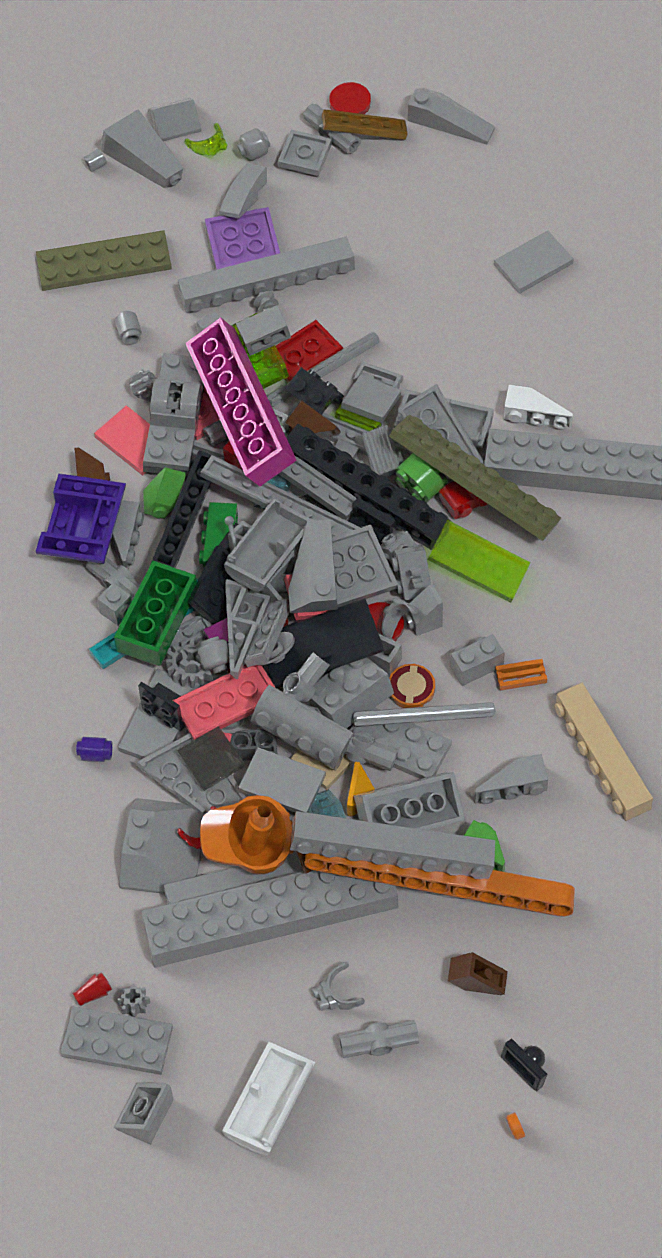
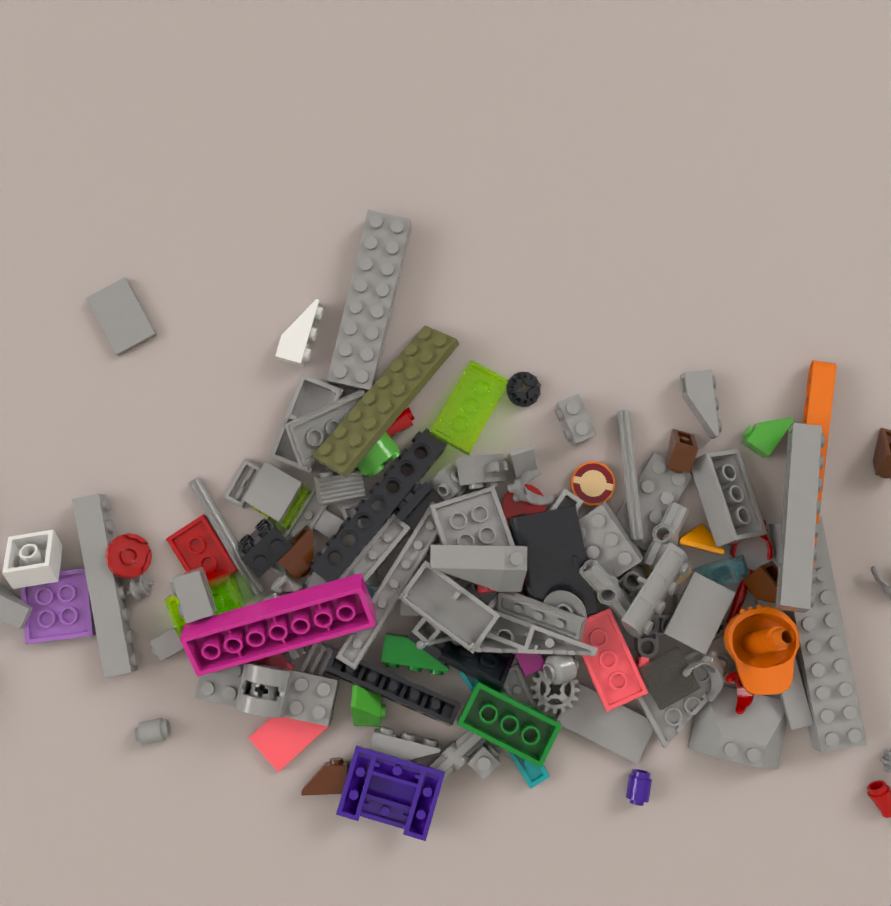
camera: 85 degrees left, 25 degrees up
(103, 260) = (61, 753): olive plate -> none
(142, 383) = (227, 719): light grey gear -> none
(160, 703) = (604, 724): black bracket -> none
(230, 796) = (715, 668): none -> light grey helmet
(286, 212) = (32, 559): none -> white brick
(296, 288) = (128, 556): none -> red tile
(455, 756) = (681, 451): none -> reddish brown slope
(501, 622) = (520, 398): none -> black gear
(521, 670) = (587, 363): orange tile -> none
(603, 751) = (678, 317): tan brick -> none

